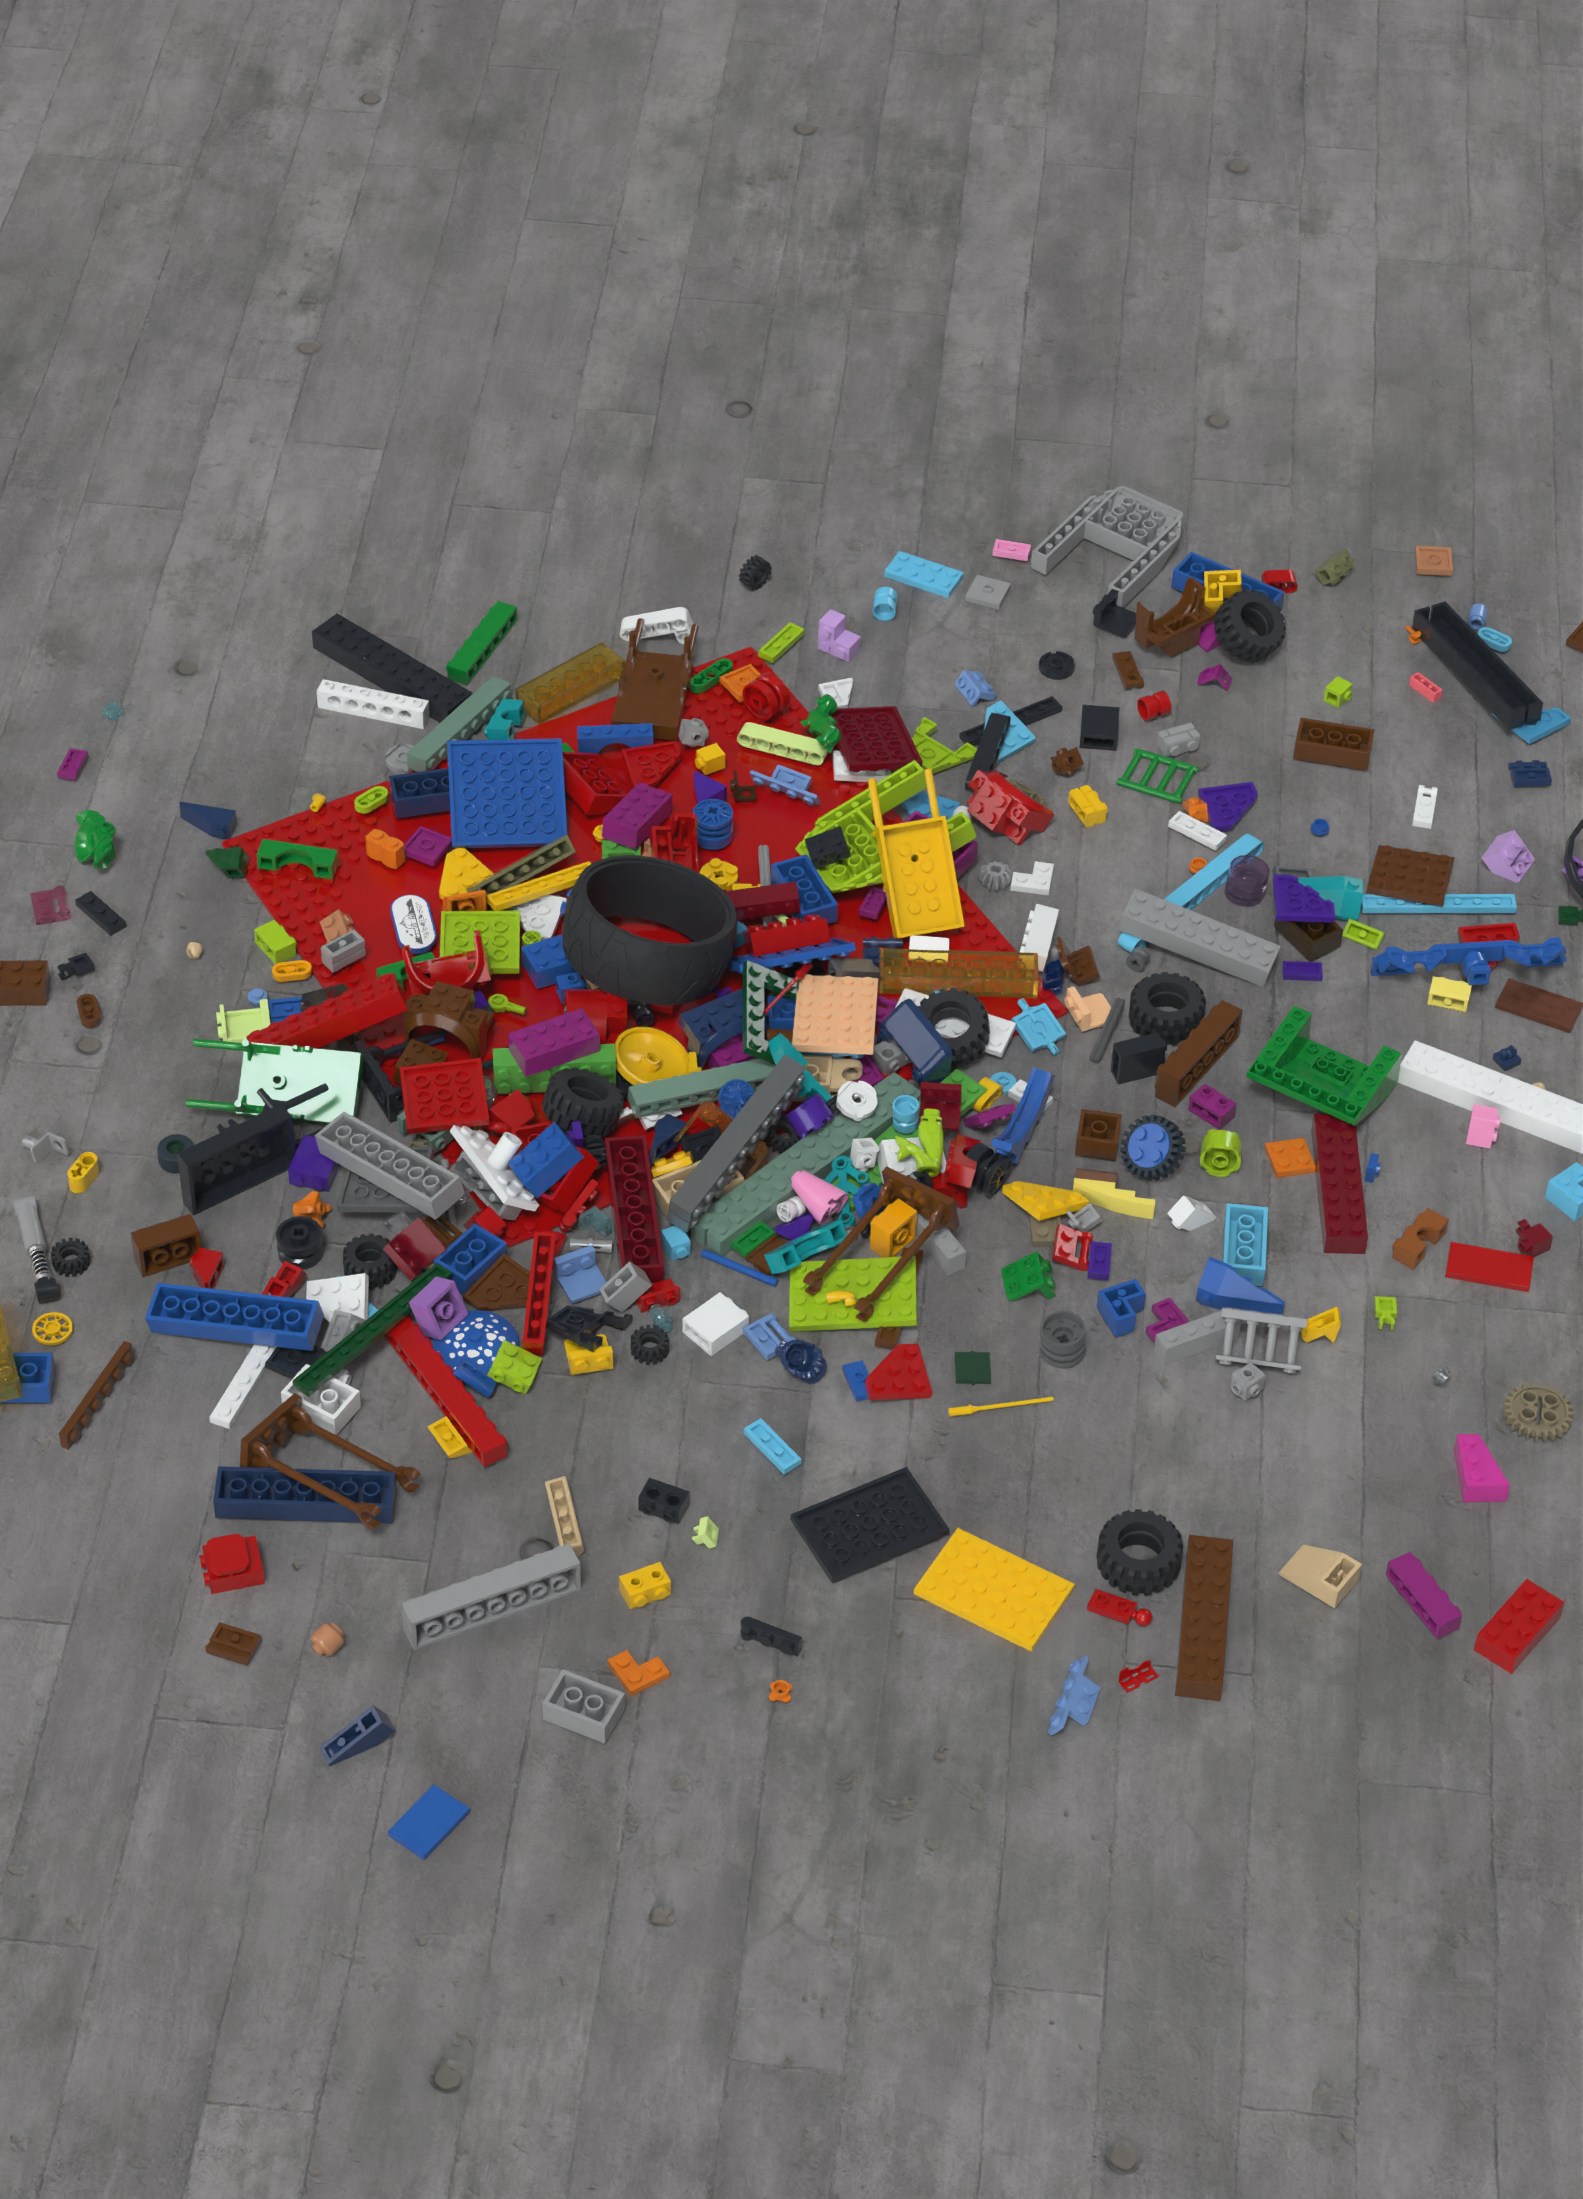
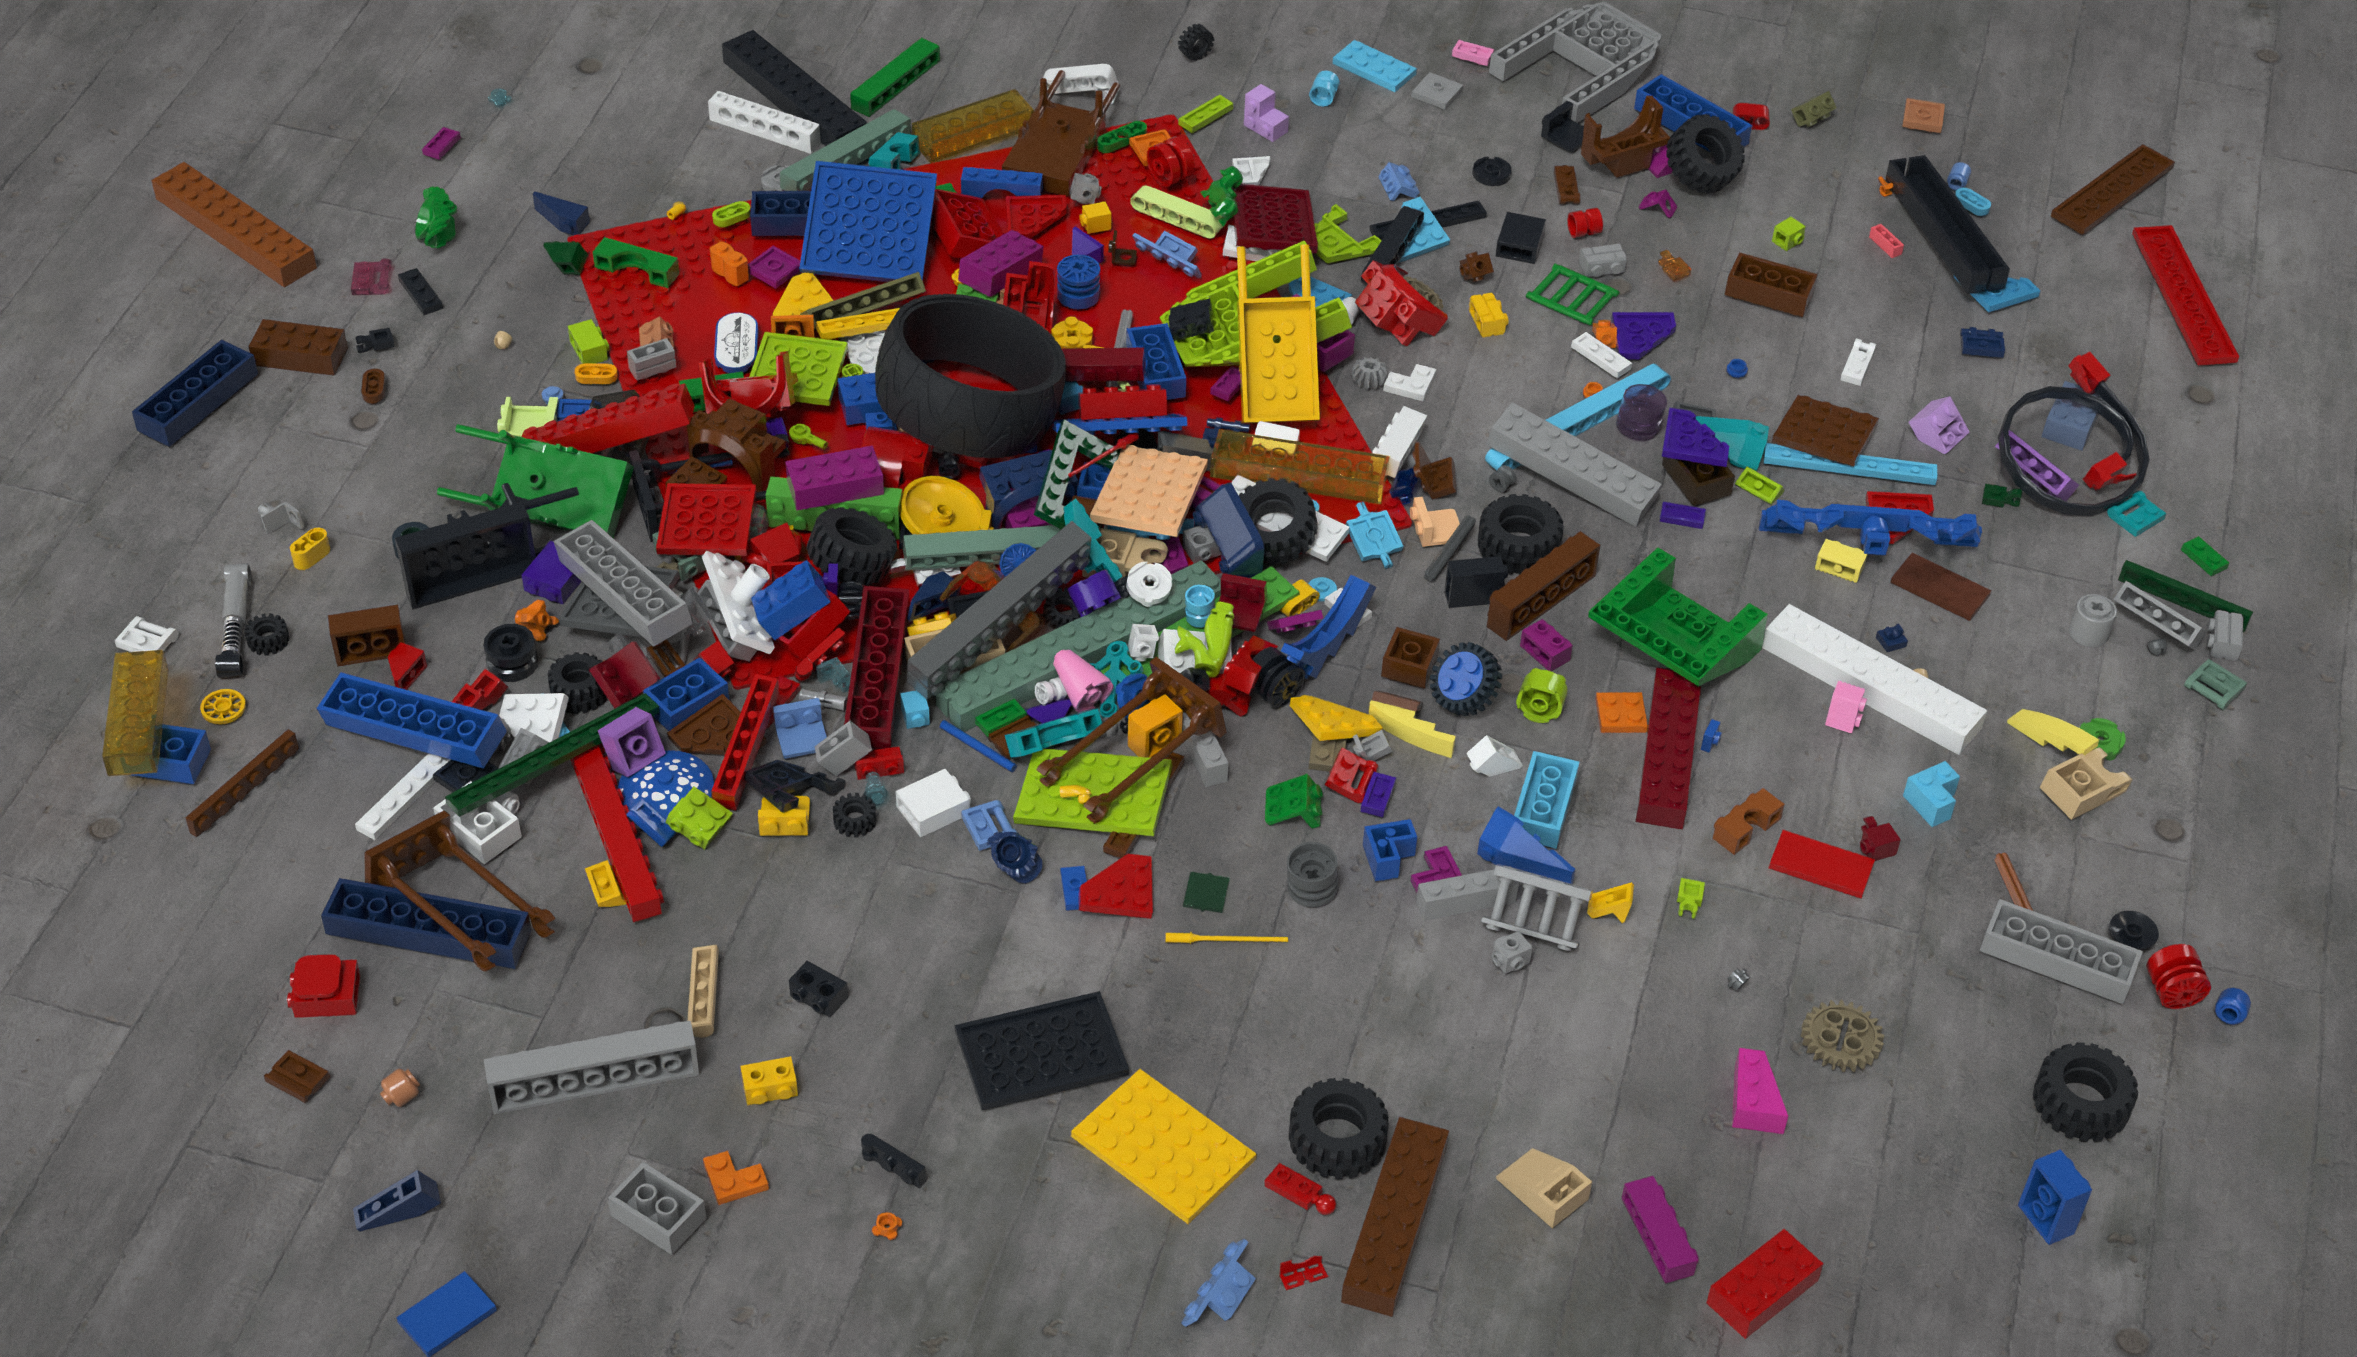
camera: 10 degrees right, 0 degrees up
(706, 1533) = (855, 1032): yellowish green tile -> none
(772, 1446) = (957, 946): medium azure plate -> none
(1220, 586) = (1680, 108): yellow brick -> none
(1243, 738) = (1674, 267): none -> clear orange plate

